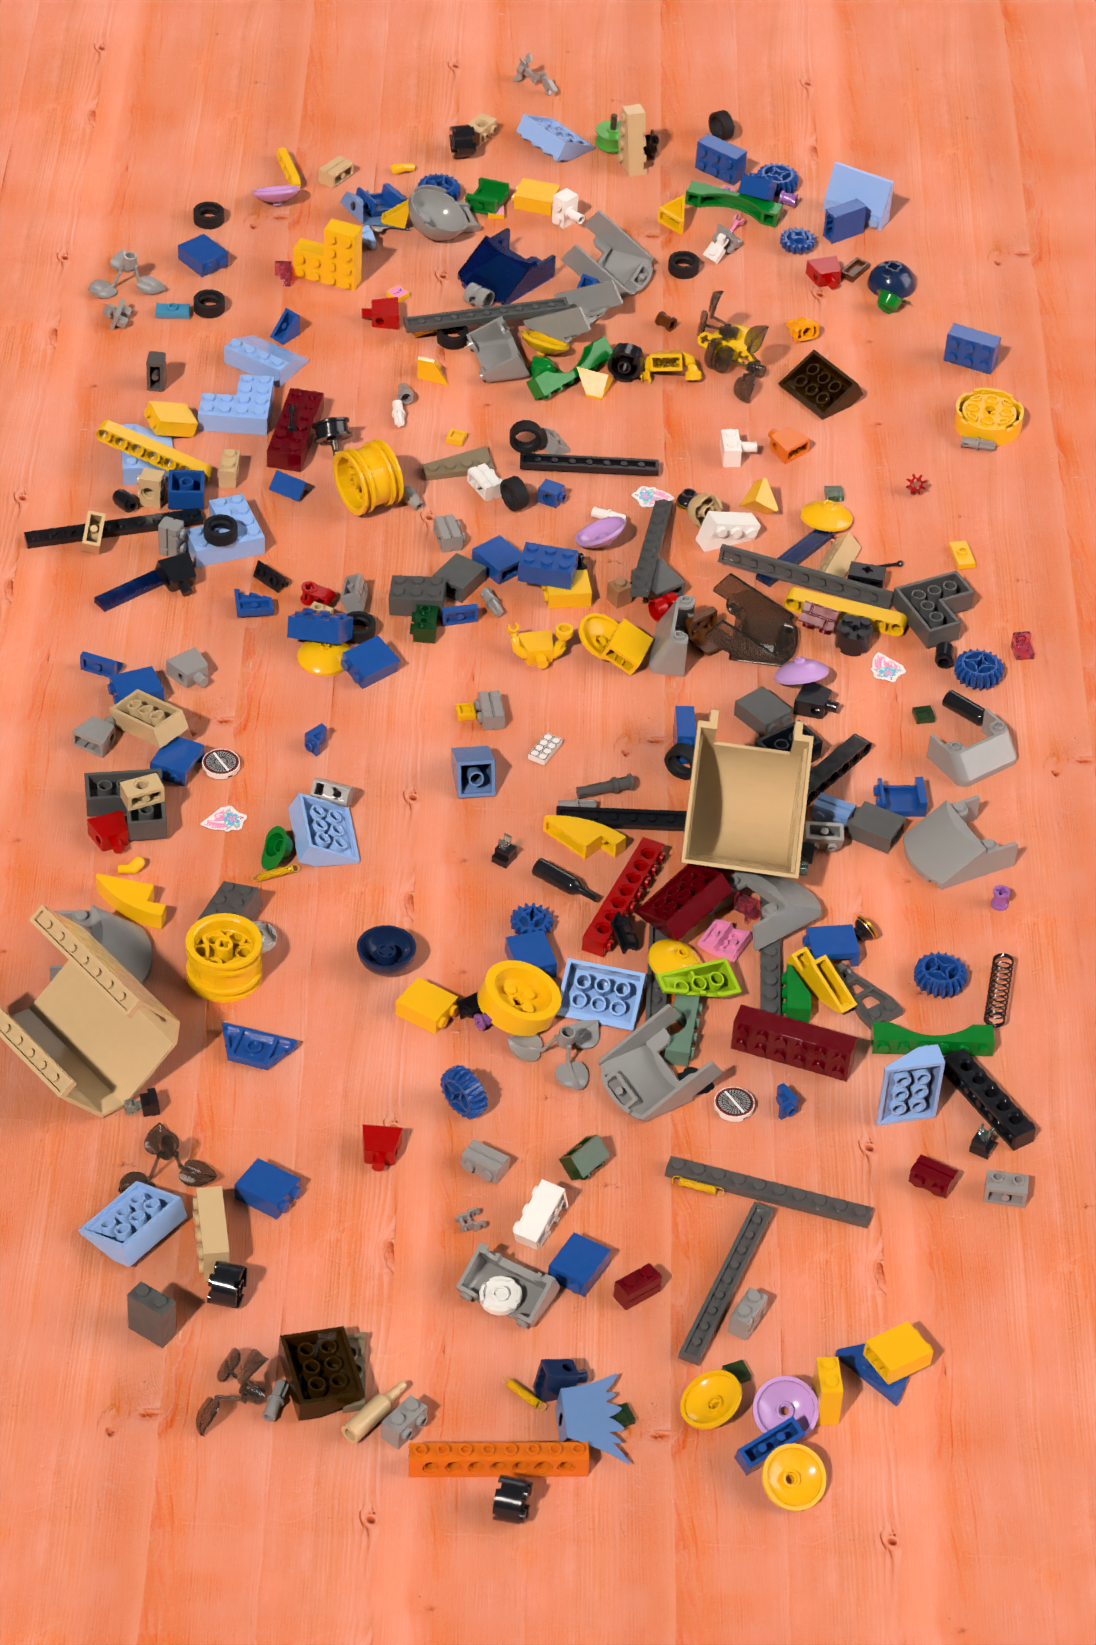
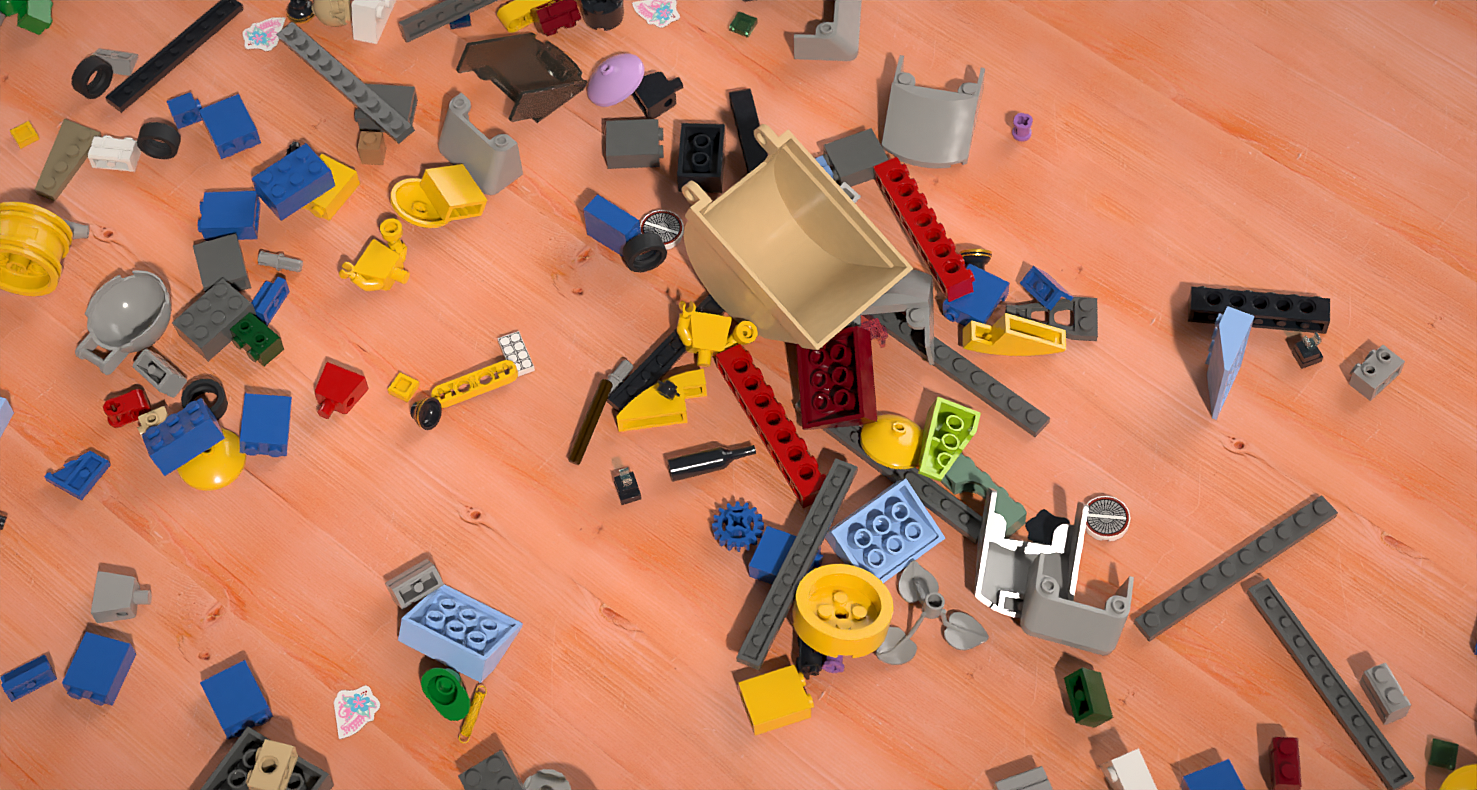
camera: 45 degrees left, 15 degrees up
(95, 735) = (128, 755): light grey torso -> none
(149, 718) = (163, 688): tan brick -> none
(221, 763) = (275, 660): tile -> none
(270, 577) = (56, 431): black hinge -> none
(315, 738) = (323, 549): blue bracket -> none
(372, 553) = (125, 318): none -> light grey windscreen
(386, 950) = (680, 675): dark blue piece -> none
(429, 681) = (338, 390): none -> red torso
(448, 533) = (152, 233): light grey brick -> none
(457, 730) = (426, 412): none -> black piece
(464, 1091) = (926, 748): blue gear -> none
(473, 771) = (496, 436): medium blue slope -> none
(490, 710) = (426, 365): light grey brick -> none
(520, 747) = (473, 380): none -> yellow beam
(531, 808) = (590, 421): none -> dark brown axle
(531, 954) = (796, 564): none -> dark grey plate
(562, 520) = (229, 126): none -> blue brick
(588, 824) = (667, 389): none -> black plate
(600, 533) = (280, 107): lavender dish -> none
(602, 513) = (260, 85): white axle -> none
(613, 785) = (617, 331): dark grey pin -> none
(621, 927) = (825, 455): black hinge -> none
(629, 1120) = (1071, 622): none -> light grey windscreen
(655, 824) = (708, 333): none -> yellow torso
(660, 605) = (426, 125): red wheel -> none
(698, 626) = (491, 116): reddish brown bracket -> none
(698, 1186) = (1186, 622): yellow piece -> none
(724, 940) = (895, 380): bright pink slope -> none
(787, 1101) = (1140, 470): blue bracket -> none
(793, 1042) = (1080, 416): dark red brick -> none
(796, 996) = (1016, 372): green slope -> none
(853, 885) = (923, 229): none -> red brick
(880, 973) = (1044, 288): none -> blue panel
(892, 1039) = (1127, 332): green arch -> none
(902, 799) = (835, 113): blue panel -> none
(933, 1176) = (1321, 419): dark red brick -> none
(940, 974) = (1089, 247): blue gear -> none
(1003, 990) = (1165, 240): piece -> none

